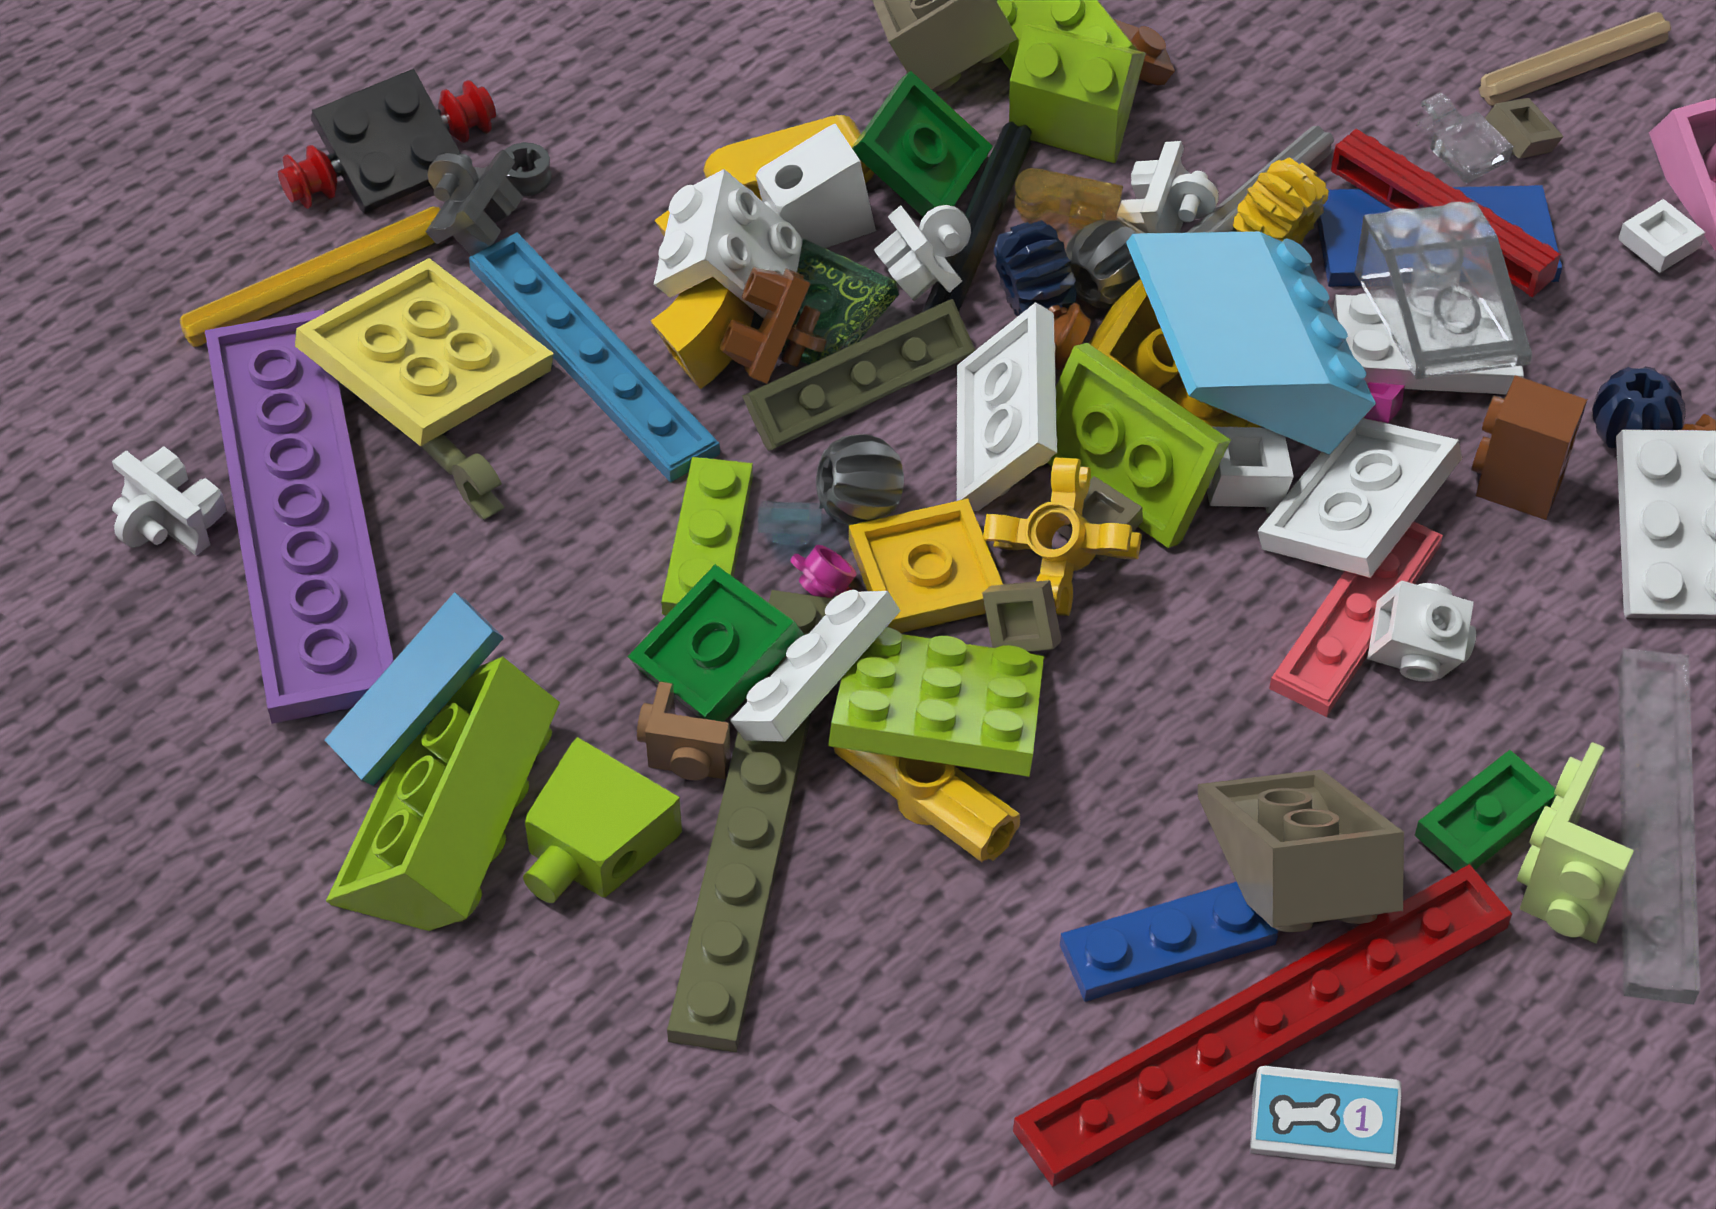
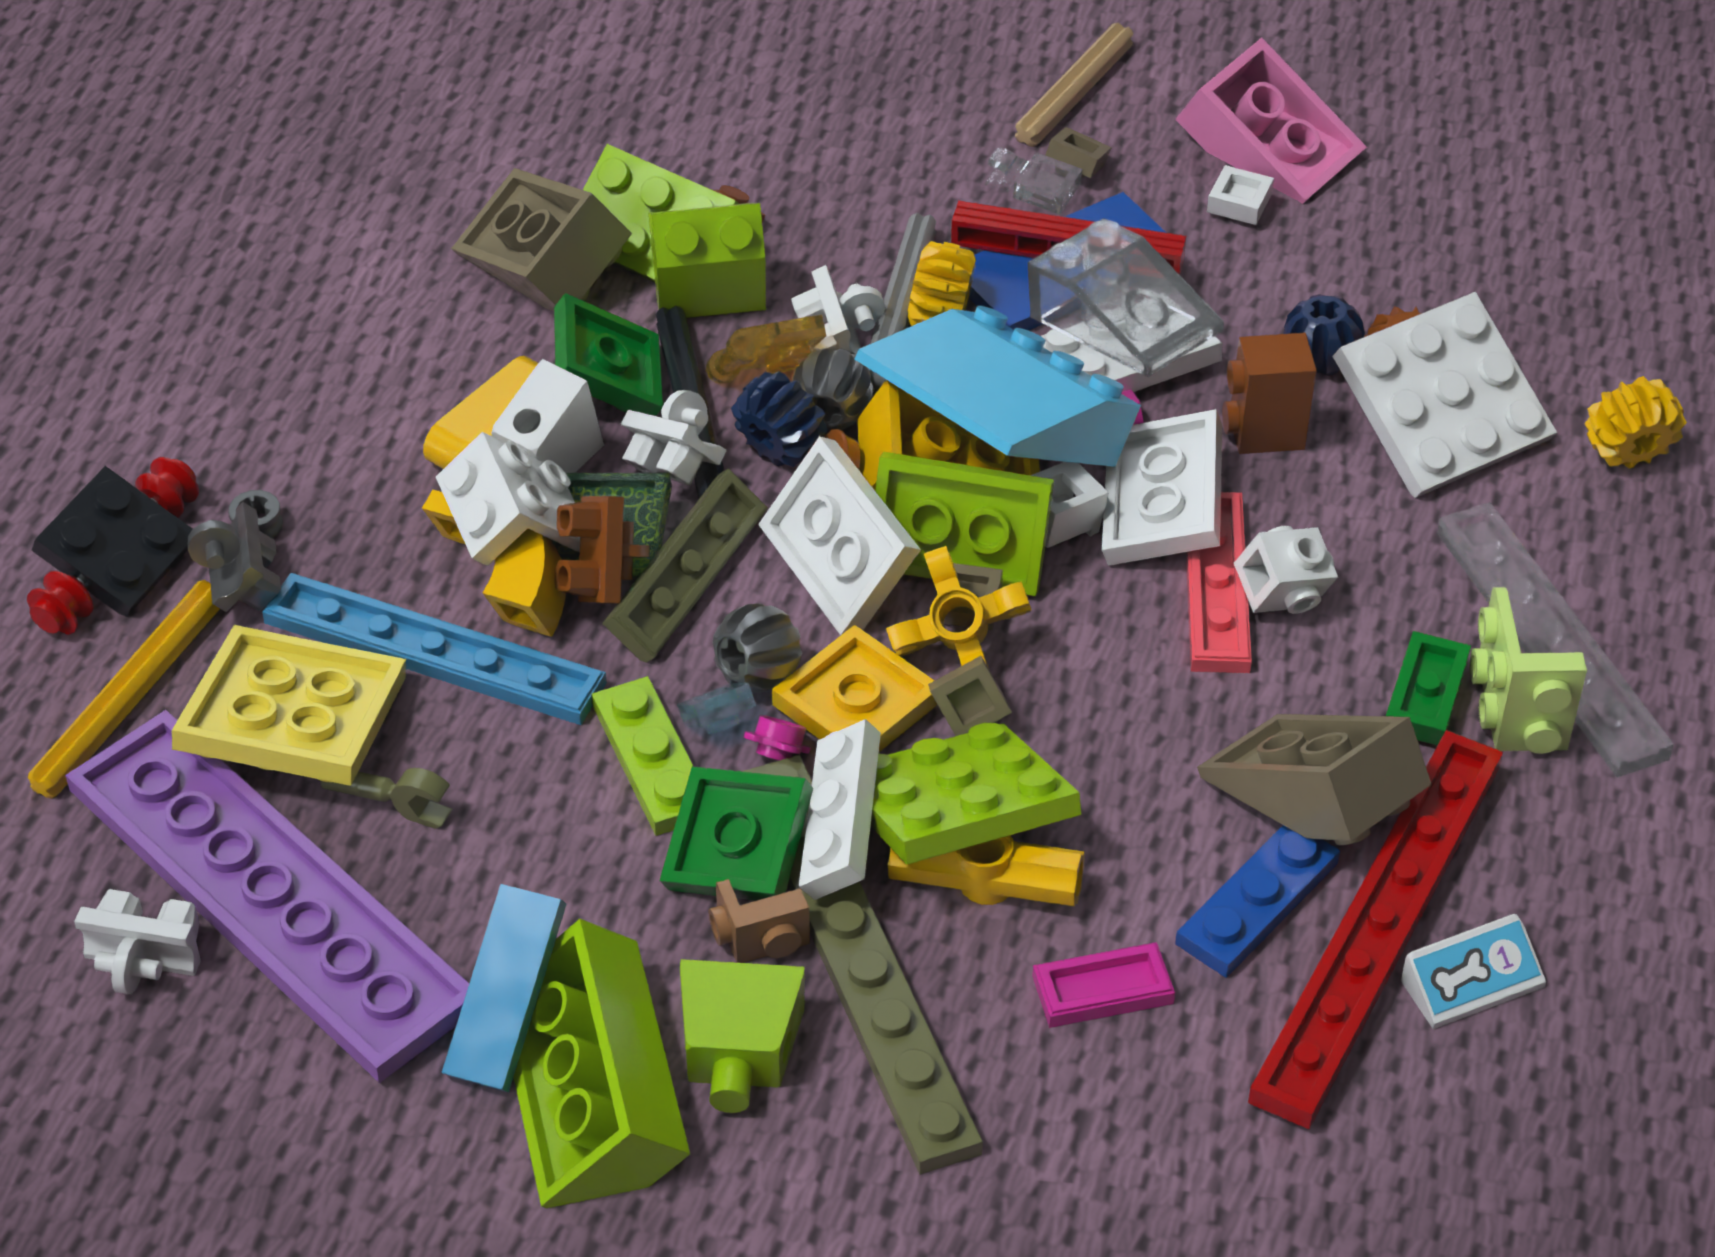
camera: 30 degrees left, 5 degrees down
(959, 950) = (1103, 984): none -> dark pink tile

